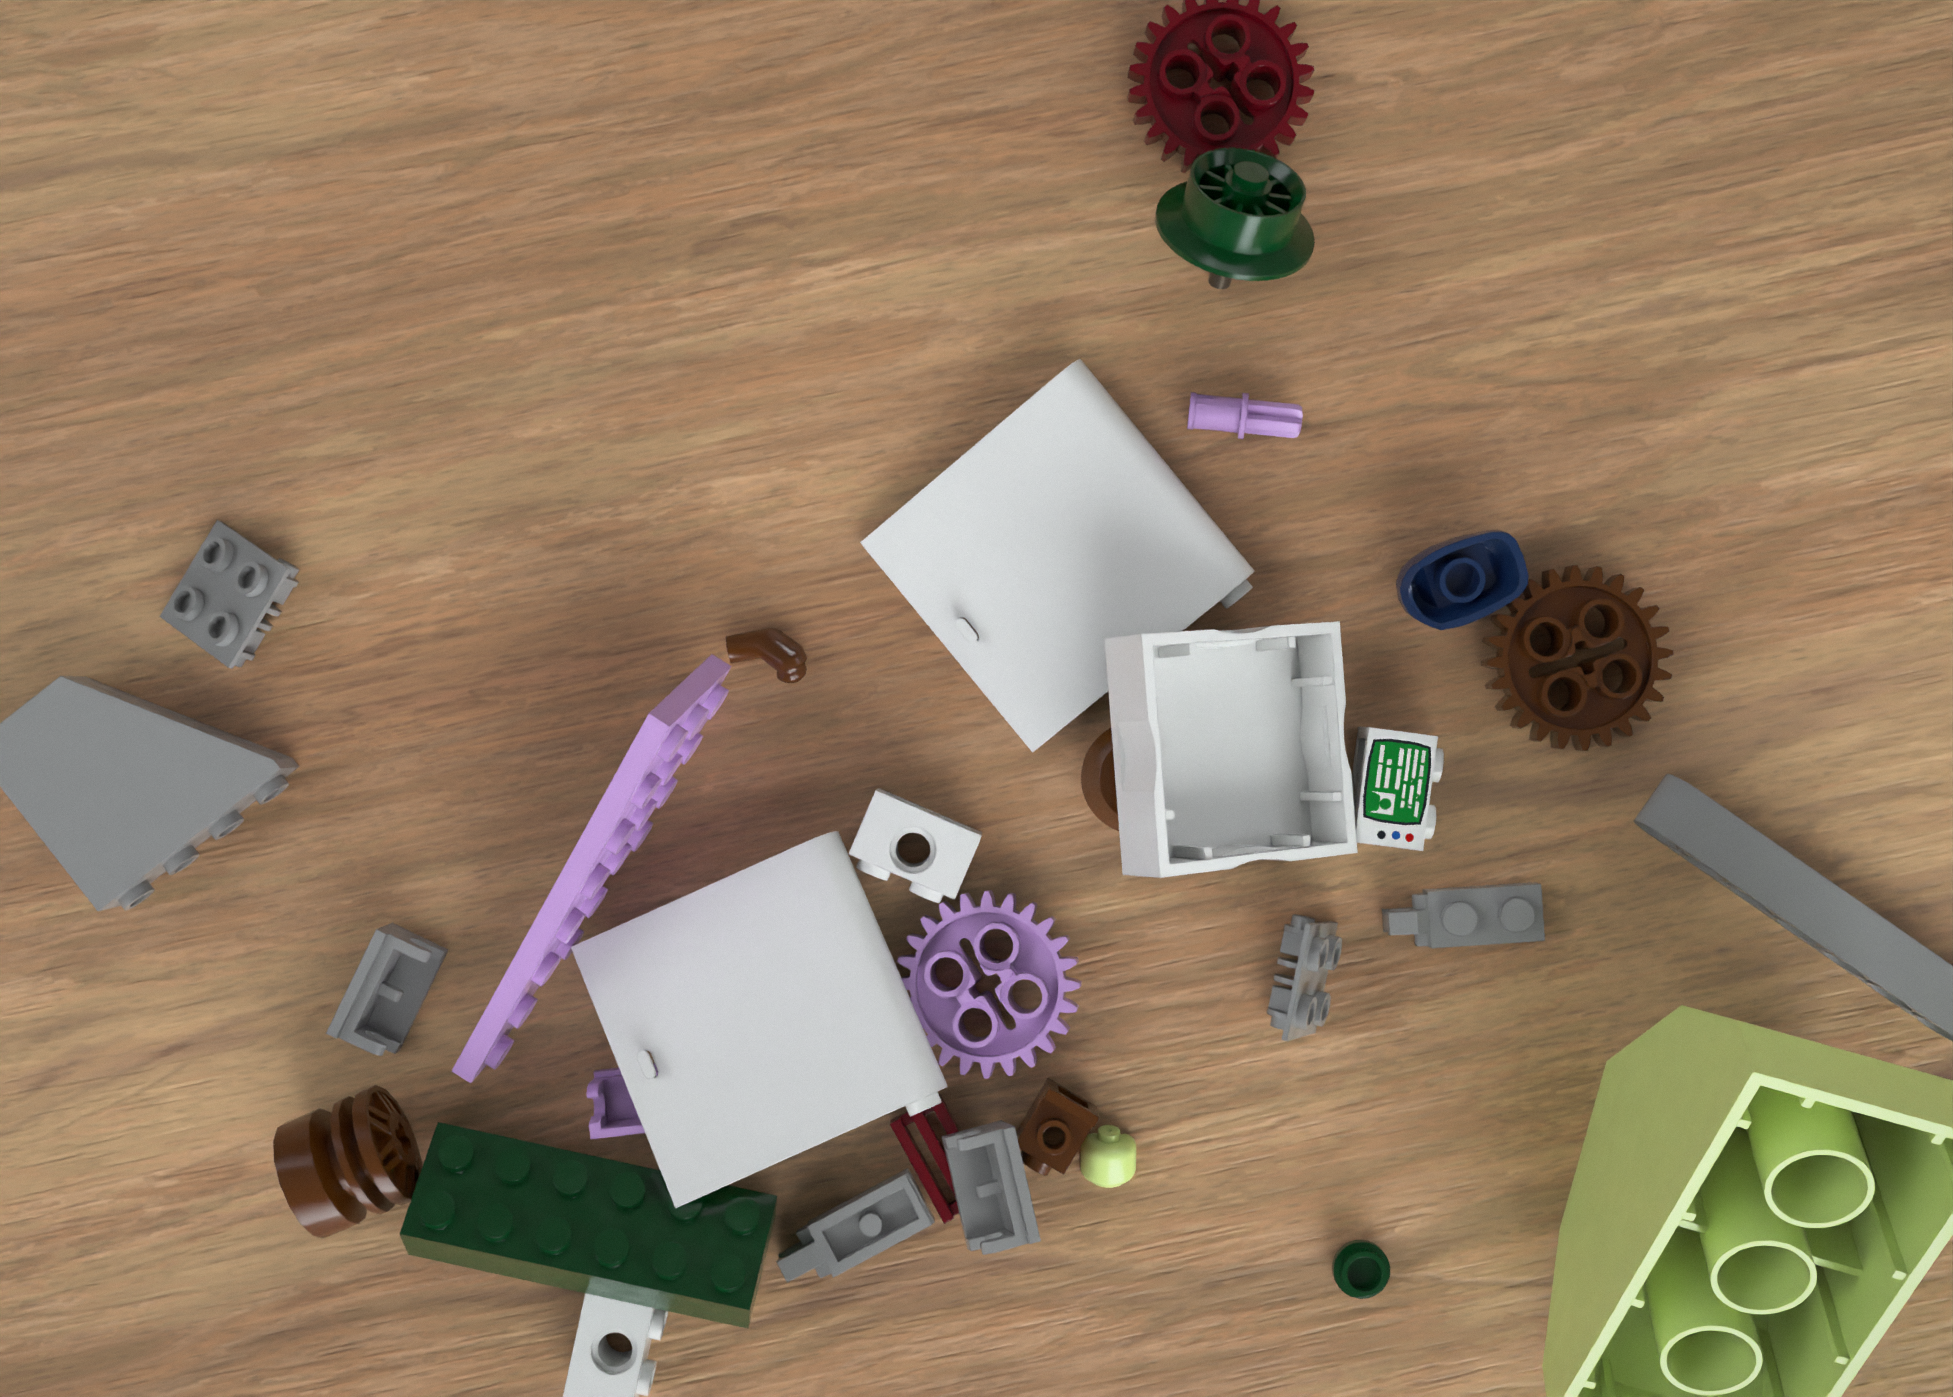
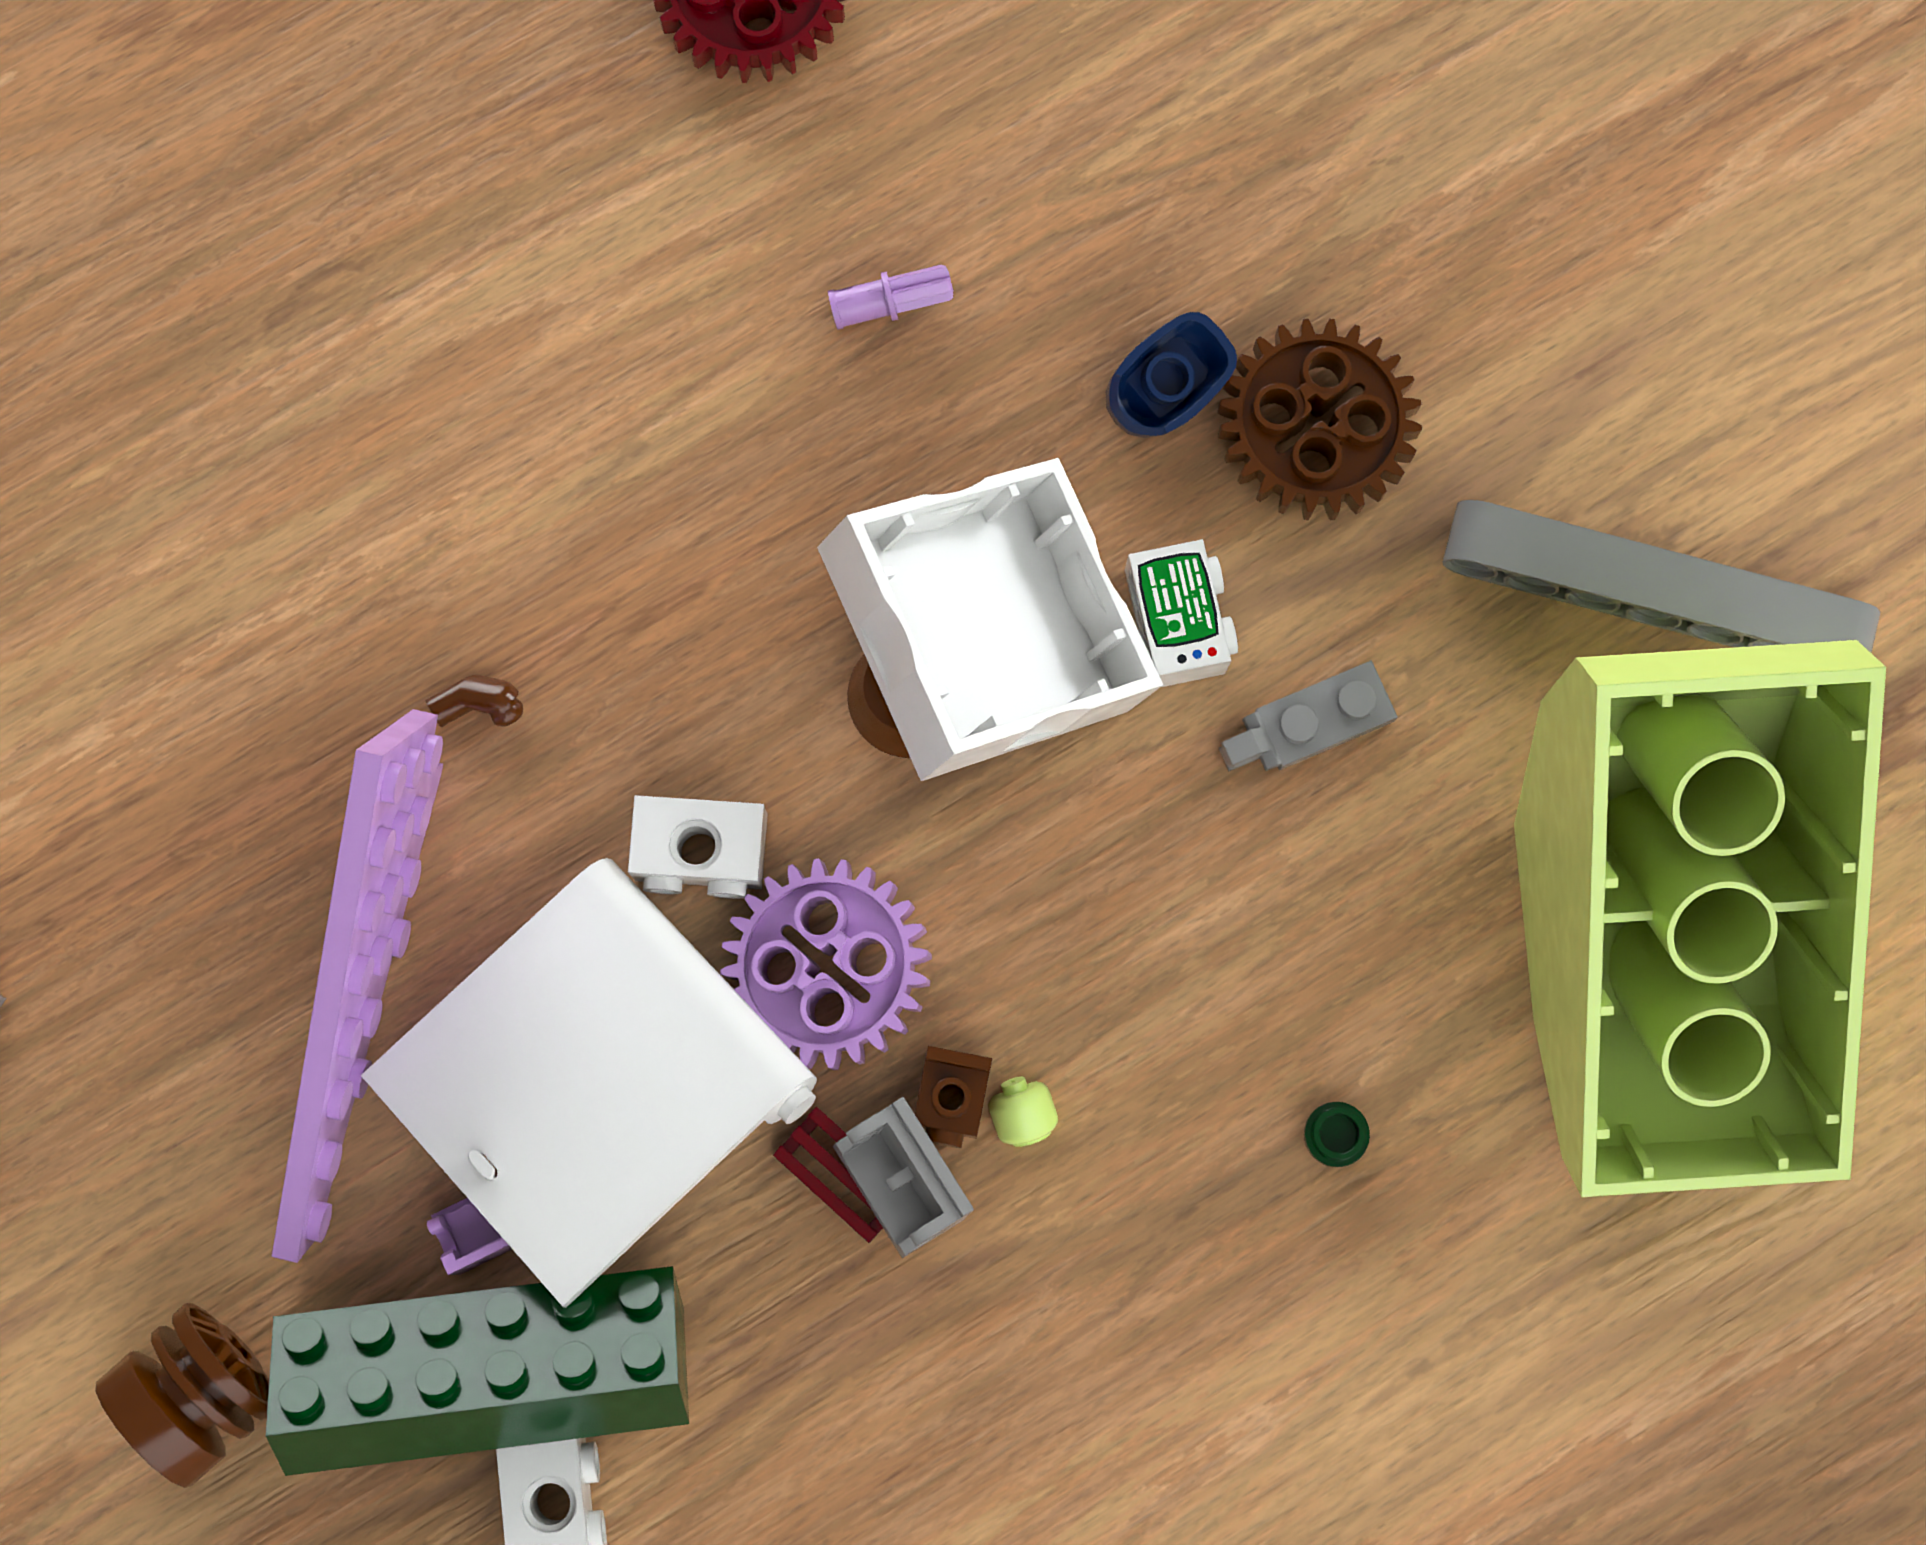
camera: 20 degrees left, 10 degrees down
(387, 990) = (175, 1200): light grey hinge -> none
(858, 1228) = (777, 1281): light grey hinge -> none
(1049, 545) = (728, 486): white door -> none
(1238, 217) = (810, 97): dark green piece -> none
(1306, 1004) = (1160, 810): light grey hinge -> none

